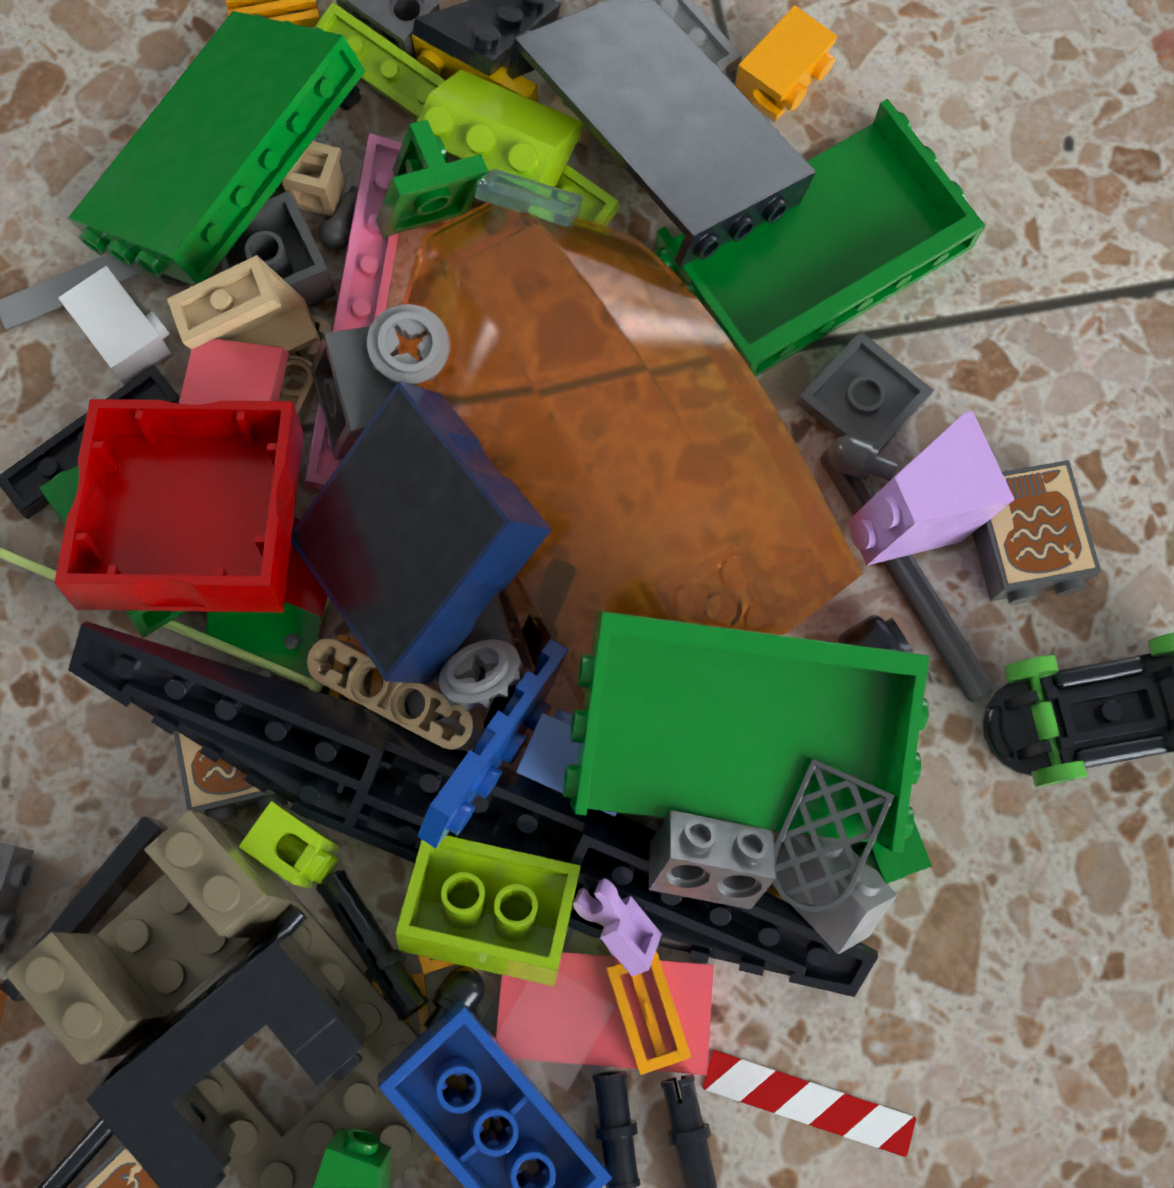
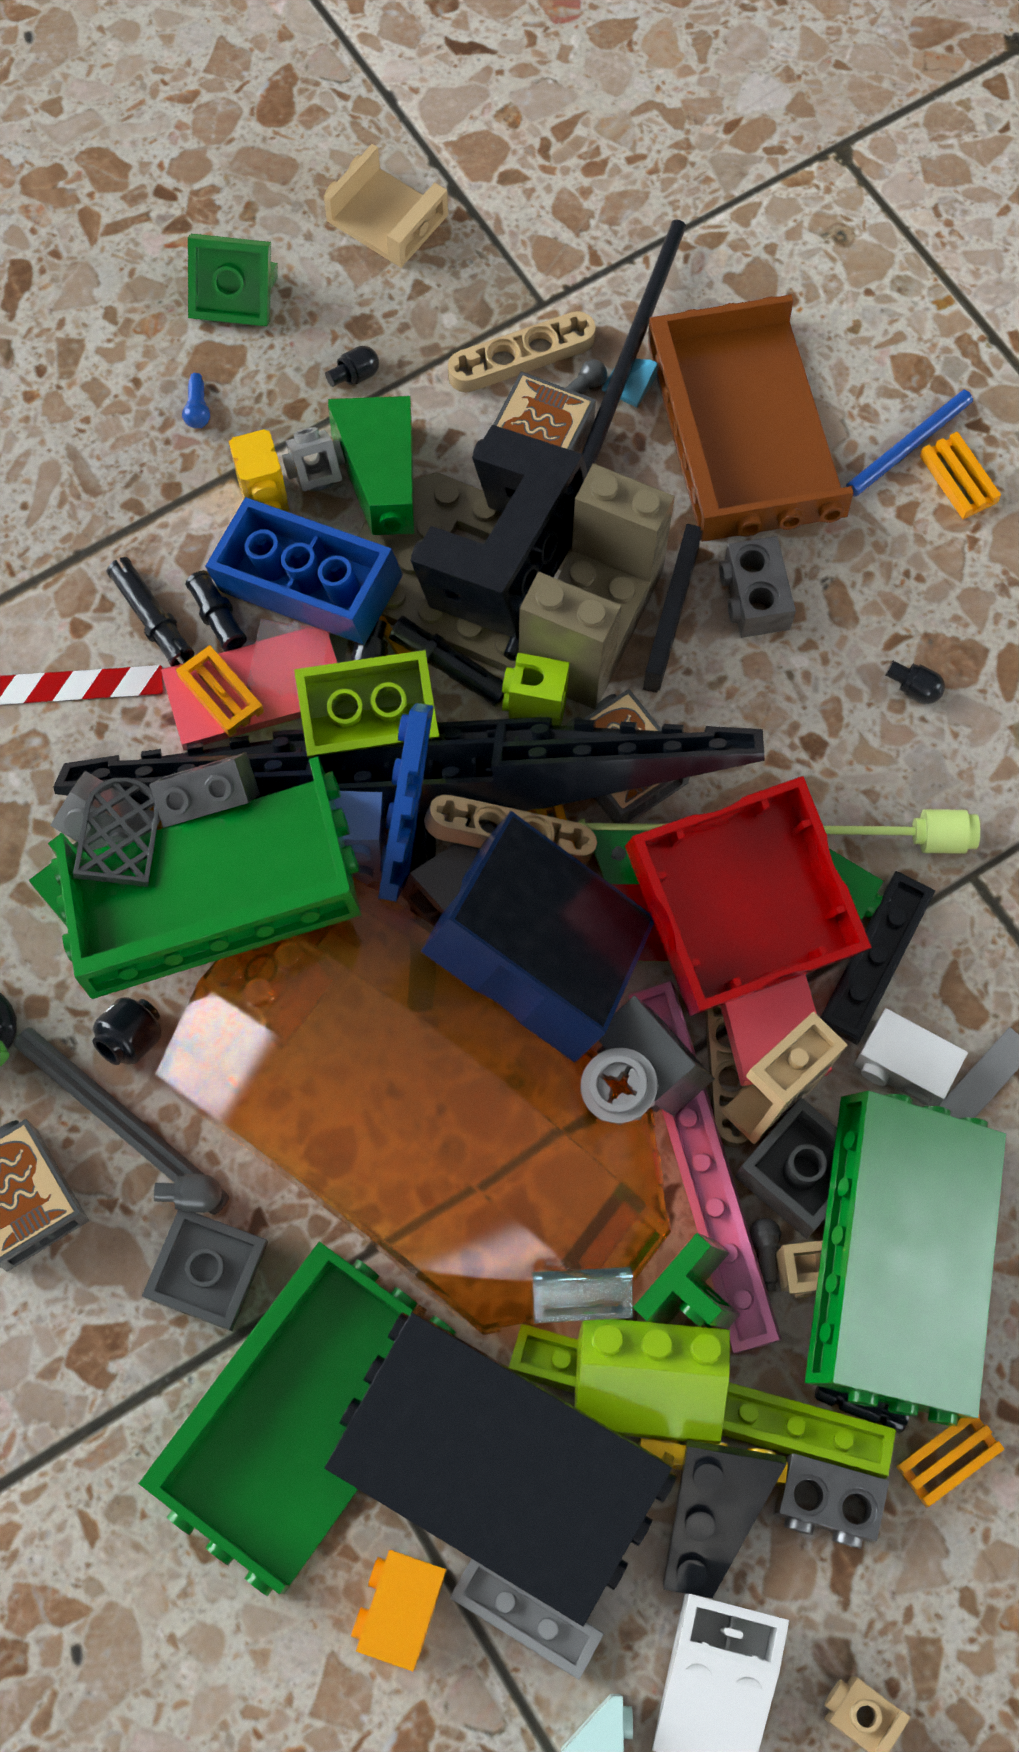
camera: 160 degrees right, 5 degrees down
(462, 671) = (457, 856): light grey gear -> none
(626, 929) = (254, 731): lavender plate -> none
(935, 498) = (113, 1167): lavender slope -> none

